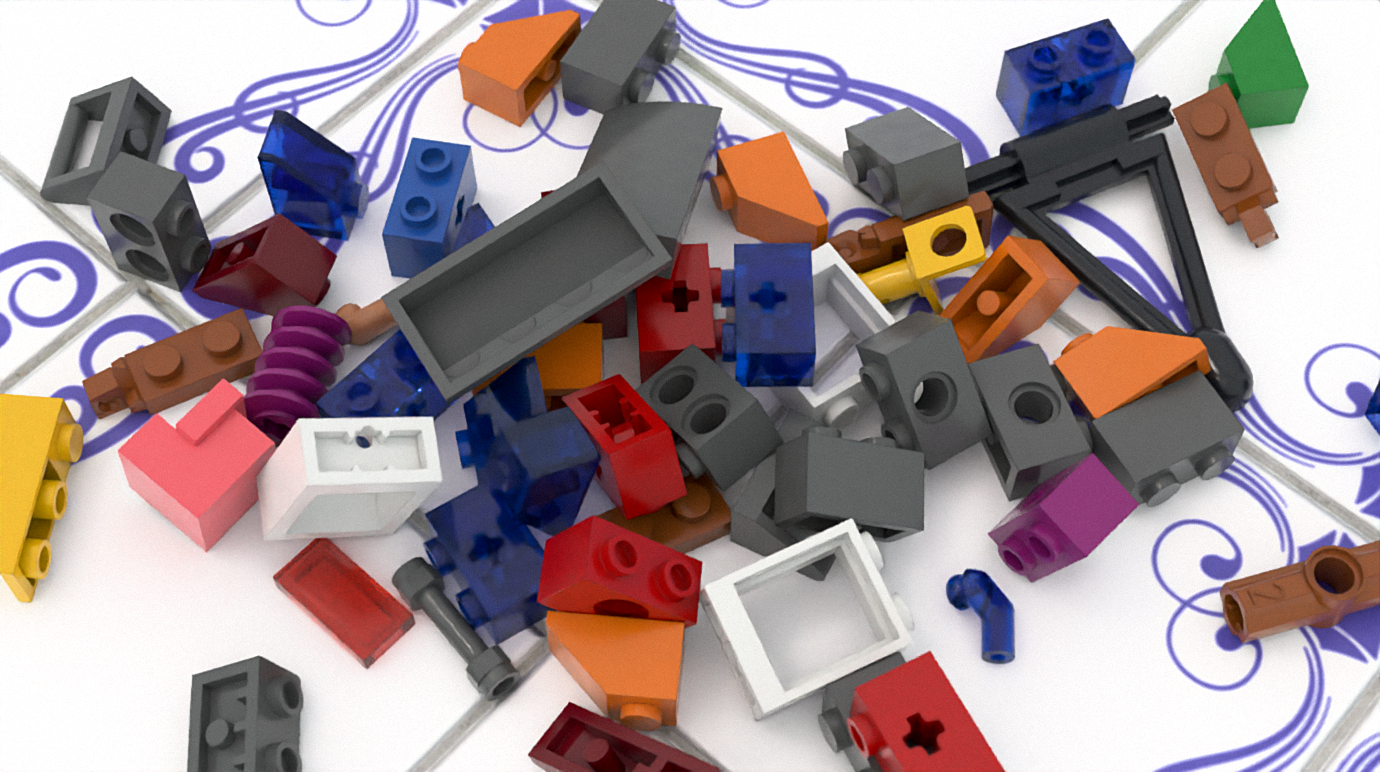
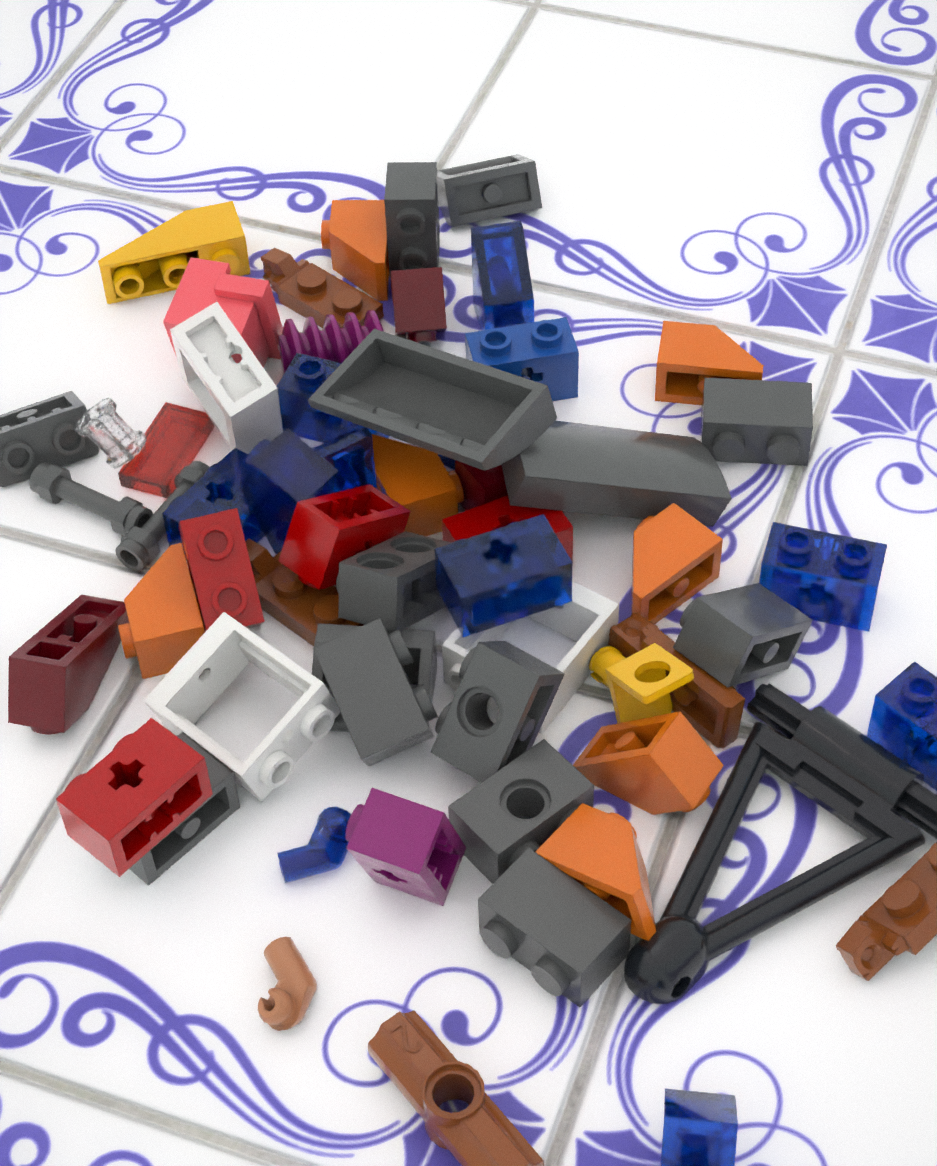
camera: 70 degrees right, 10 degrees down
(134, 293) = (359, 244): none -> orange slope
(306, 644) = (111, 433): none -> clear bush
(335, 738) = (55, 484): none -> dark grey bar
(846, 82) = (824, 574): none -> clear blue brick
(1146, 689) = (294, 987): none -> nougat arm

